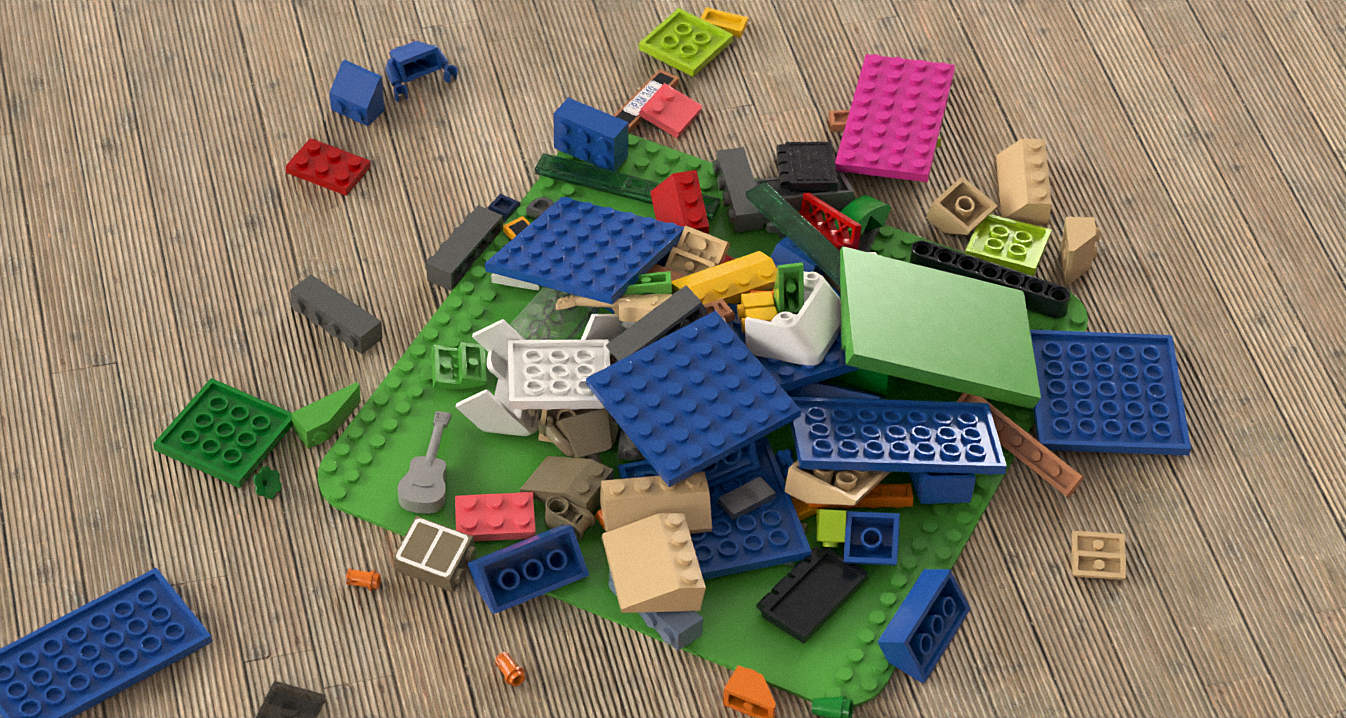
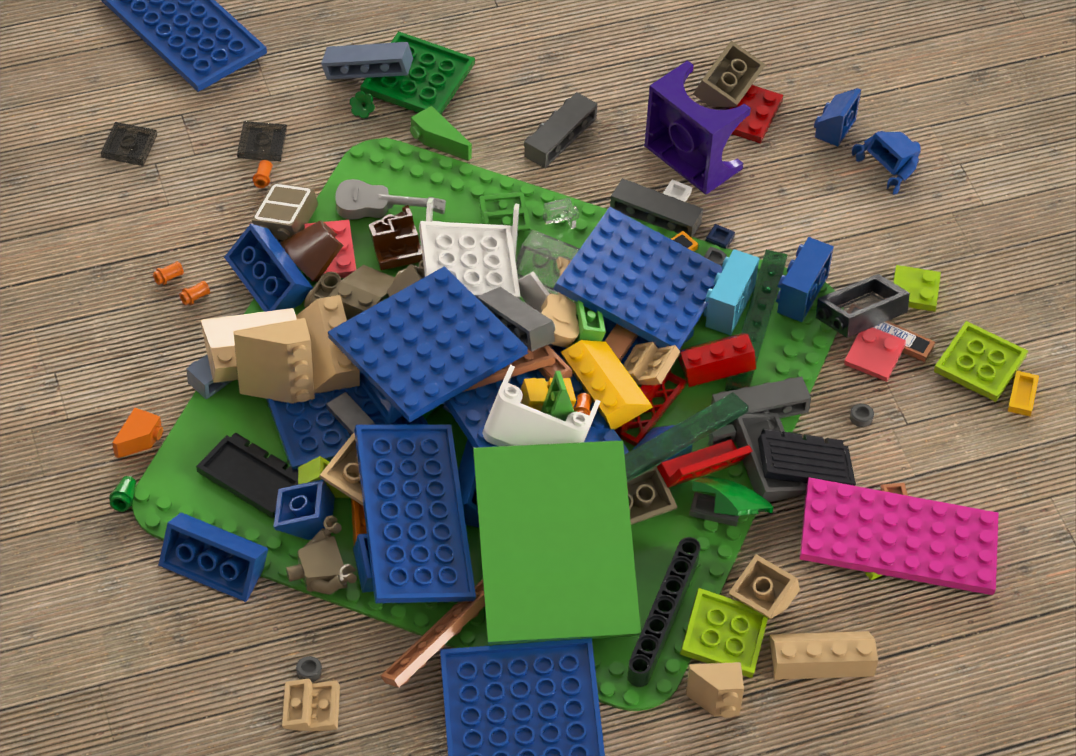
camera: 85 degrees right, 5 degrees up
(207, 466) = (367, 60): none -> sand blue brick
(284, 171) = (729, 77): none -> dark tan slope
(305, 581) = (262, 141): none -> clear smoke tile
(386, 193) = (688, 134): none -> dark purple piece
(440, 230) = (678, 190): none -> white plate
(468, 313) = (560, 211): none -> clear bracket
(489, 457) = (396, 240): none -> reddish brown slope
(509, 517) = (313, 249): none -> reddish brown slope
(547, 649) = (189, 295): none -> orange pin
(586, 76) = (921, 285): none -> lime plate
(603, 184) = (731, 291): none -> medium azure brick
(625, 99) = (862, 305): none -> black window
(708, 516) = (275, 361): none -> tan slope
(744, 131) = (861, 415): none -> dark grey tile
(938, 530) = (321, 562): none -> dark tan torso
(1054, 557) = (309, 668): none -> dark grey tile

